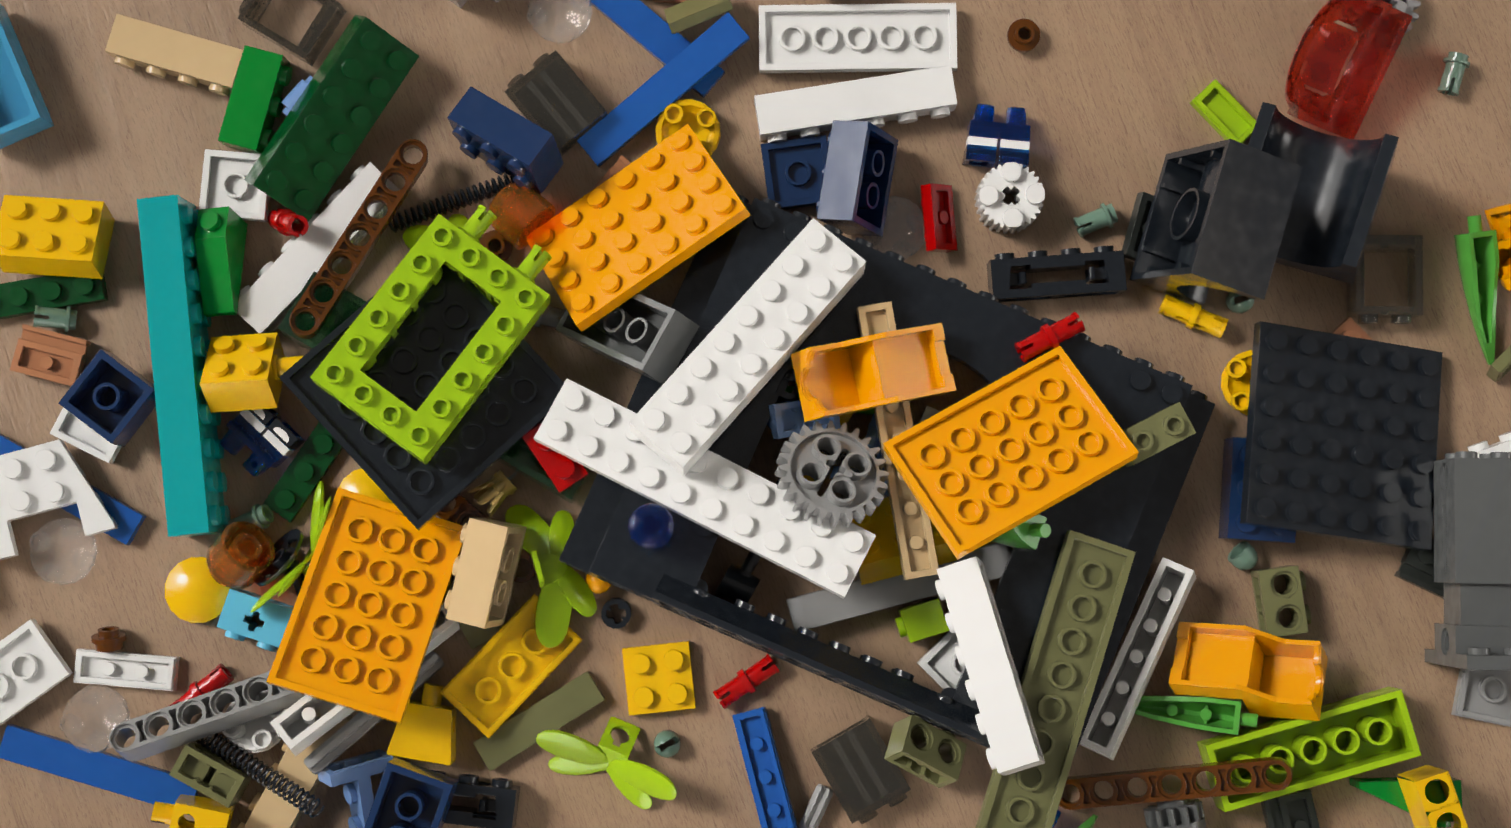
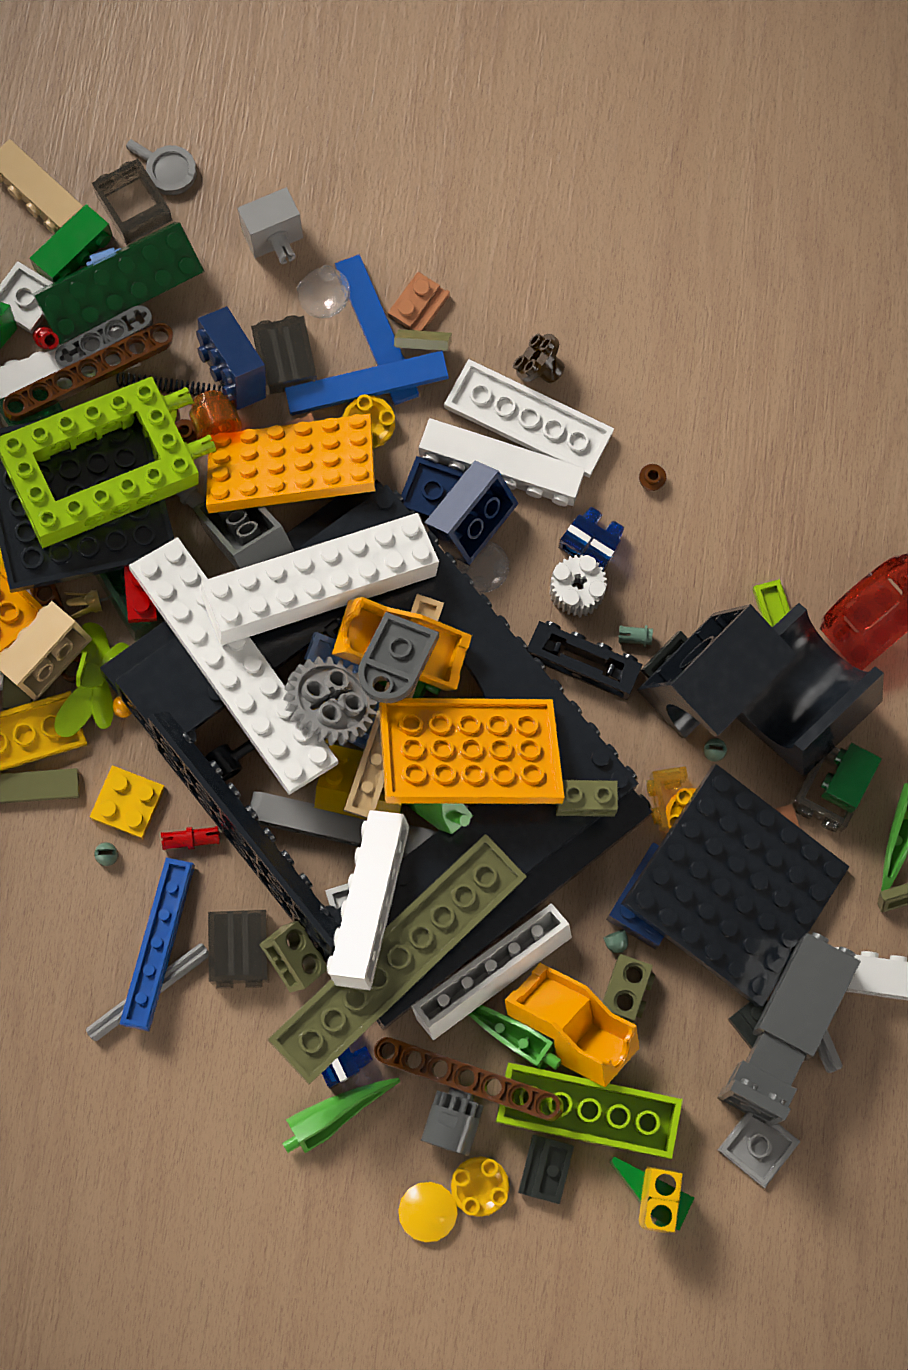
camera: 25 degrees right, 10 degrees down
(348, 187) = (101, 334): none -> dark grey beam
(581, 757) = (36, 829): lime piece -> none
(610, 621) = (130, 733): black bush -> none
(651, 526) = (177, 668): clear blue head -> none
(881, 392) = (396, 656): none -> dark grey tile
(921, 620) = (340, 859): lime brick -> none
(938, 218) = (519, 574): red plate -> none
(1049, 337) = (548, 690): red pin -> none
(1193, 316) = (672, 742): yellow pin -> none
(1200, 375) = (670, 779): none -> clear yellow bracket
(1405, 261) = (851, 777): none -> dark green brick

